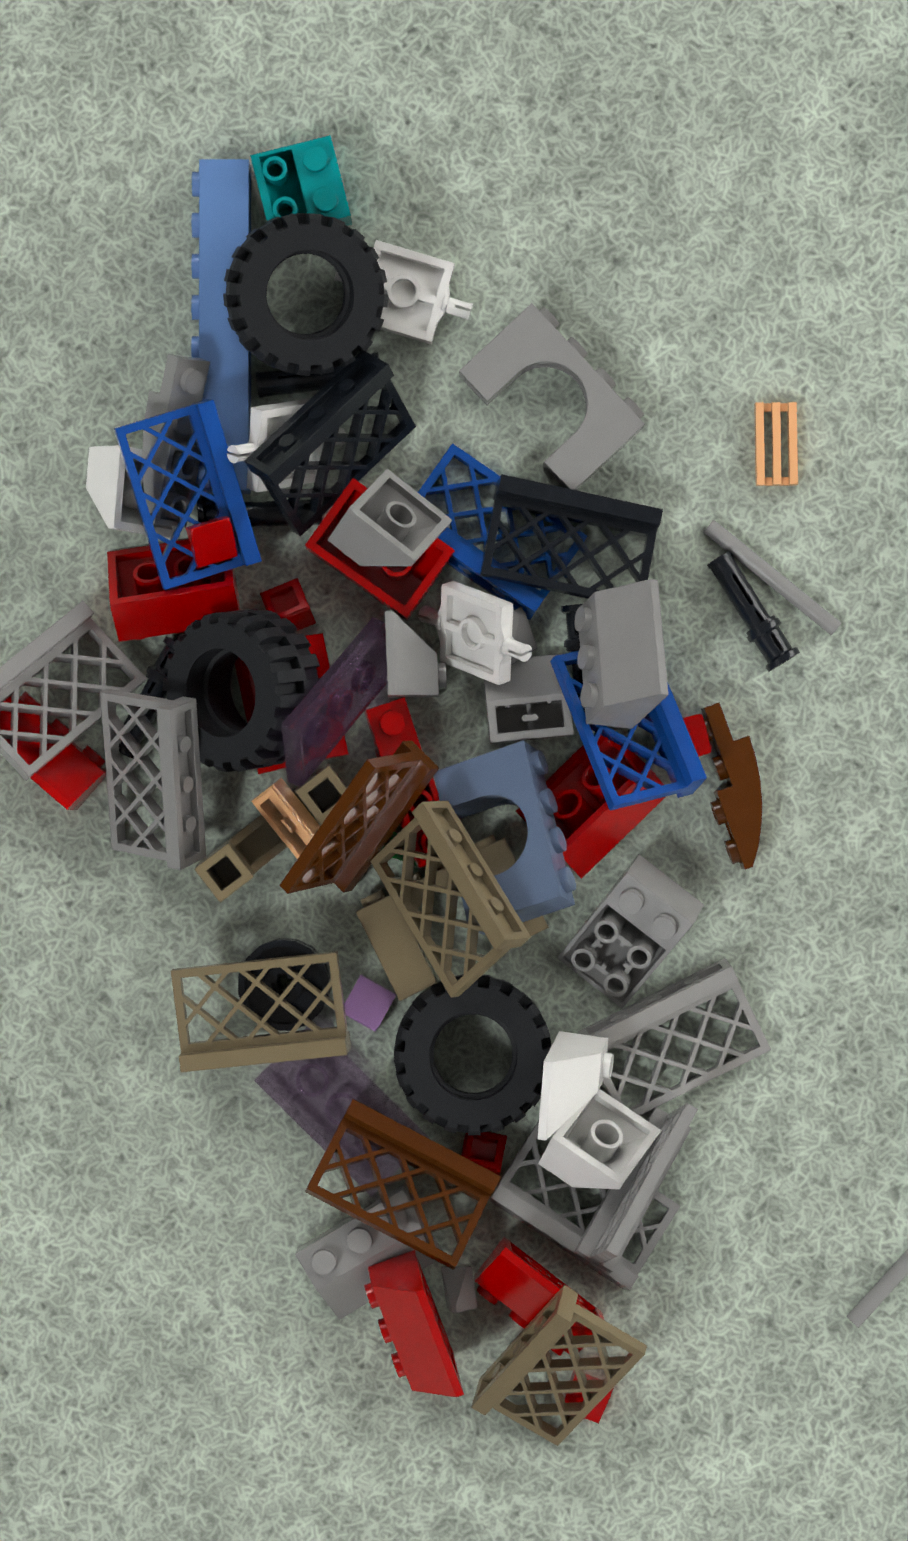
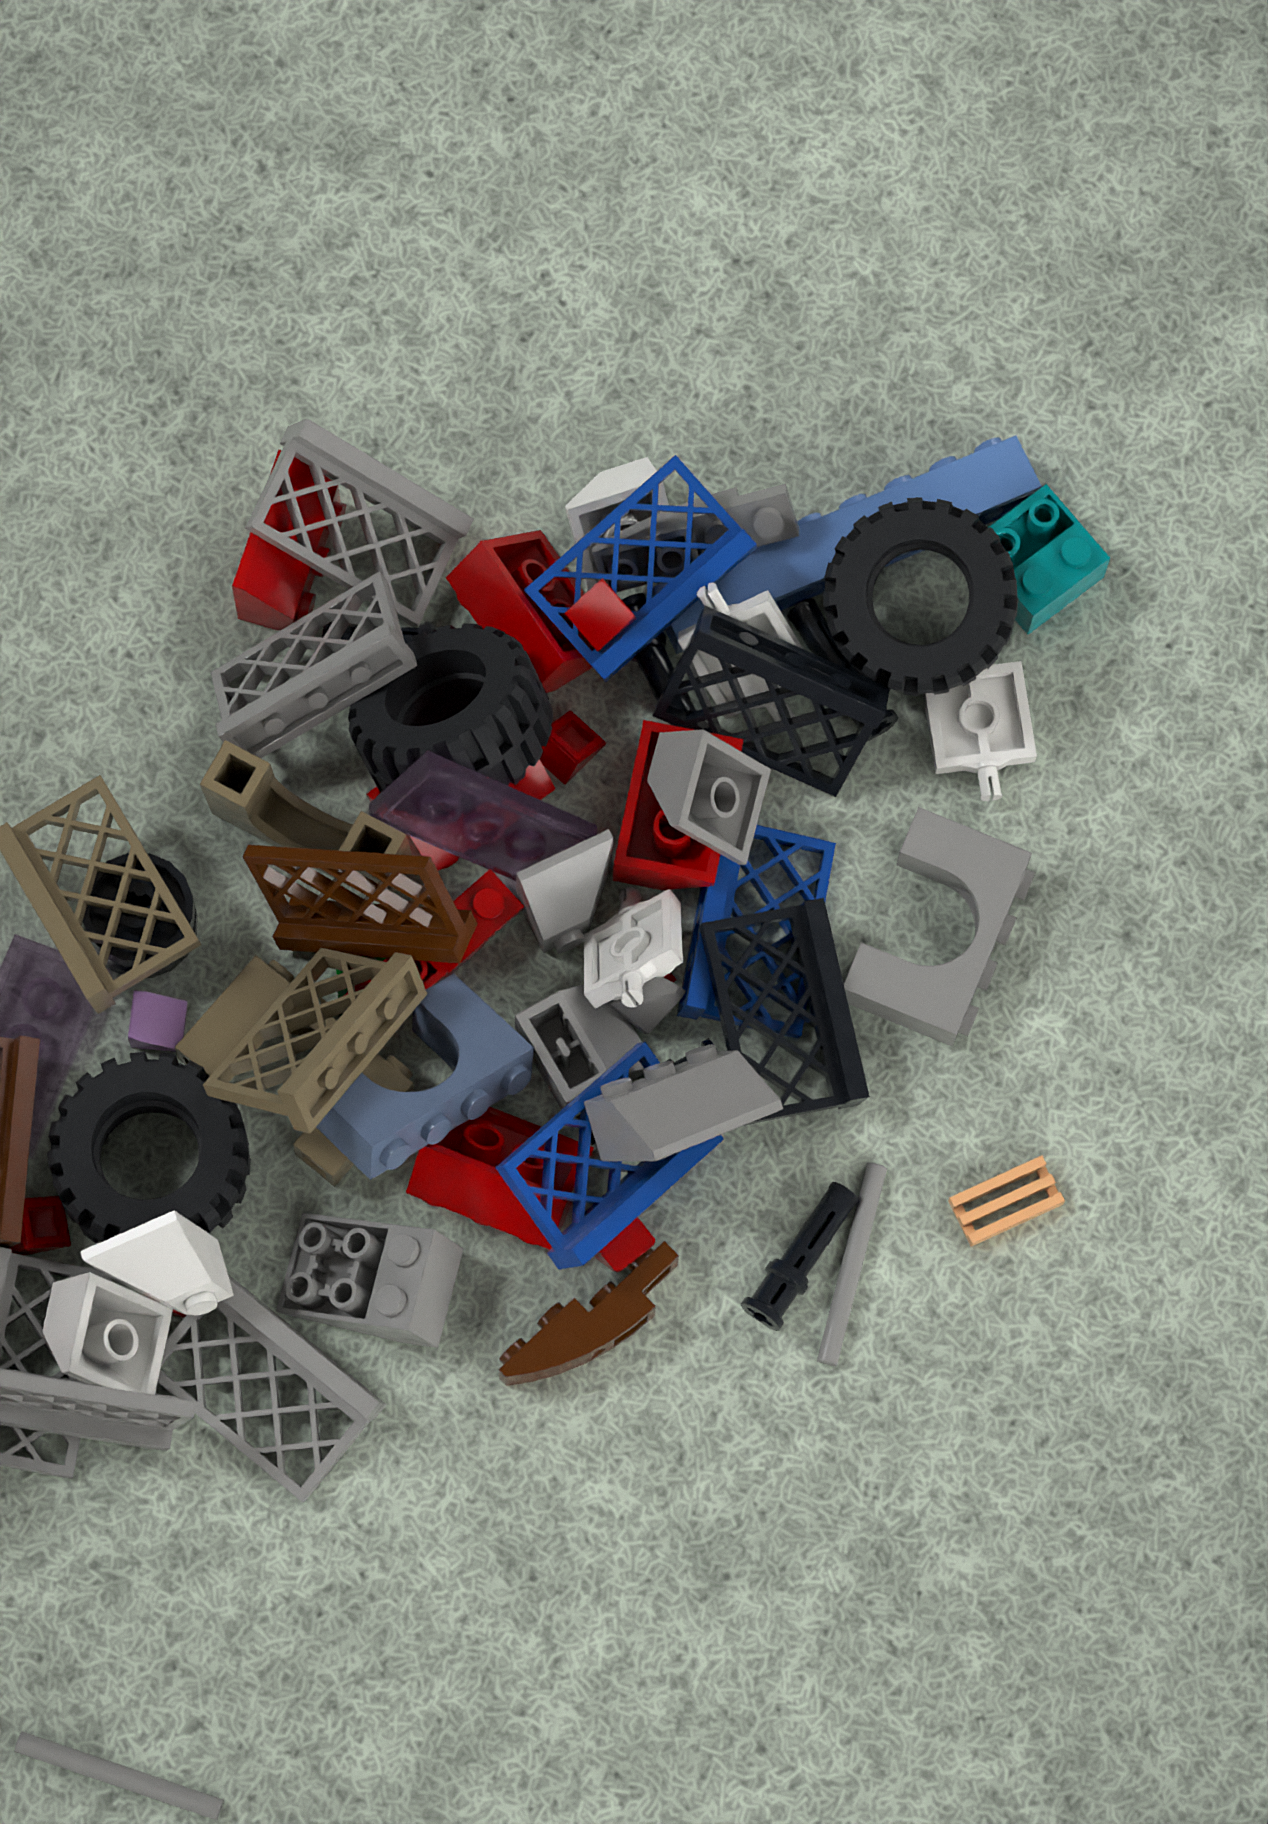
camera: 65 degrees right, 15 degrees down
(287, 816) = (332, 824): light nougat tile -> none

